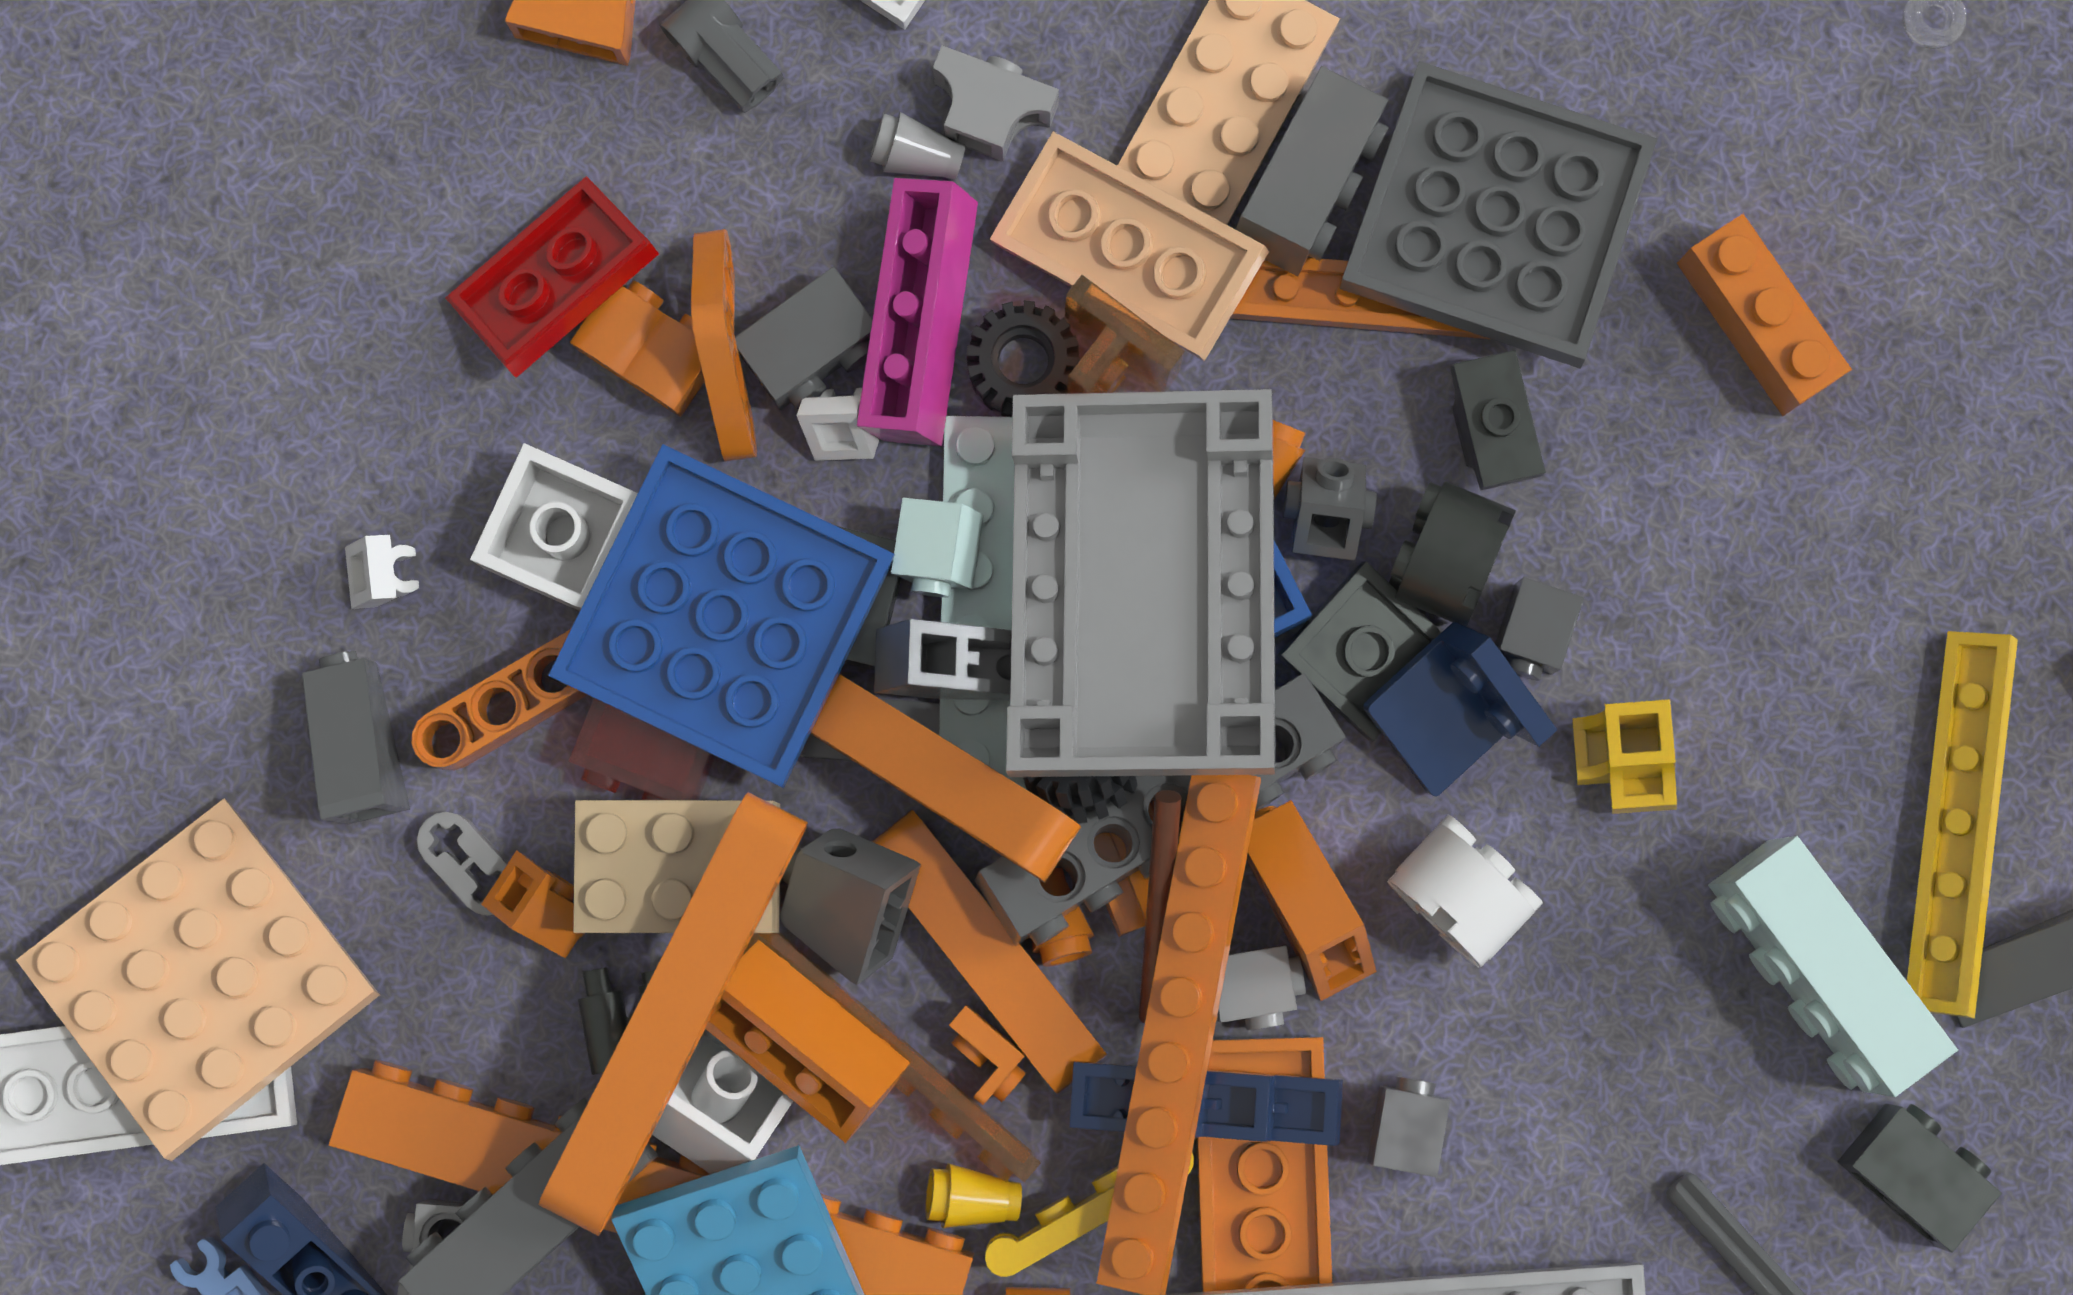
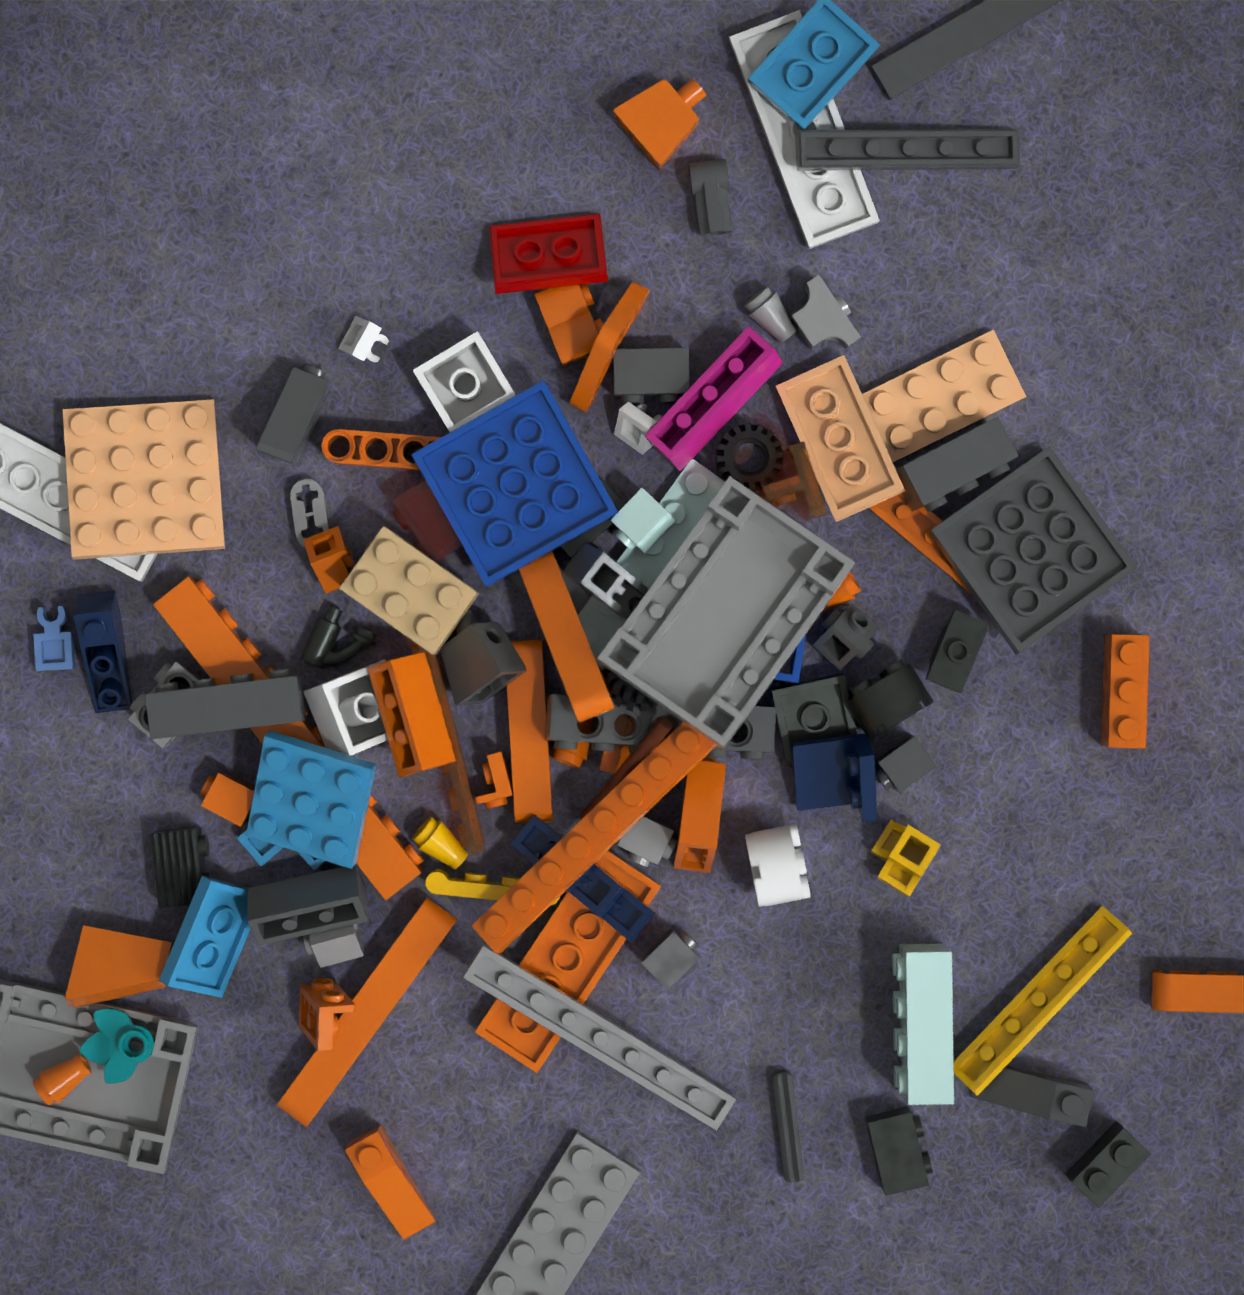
camera: 35 degrees right, 5 degrees up
(673, 1013) = (361, 661): orange beam -> none

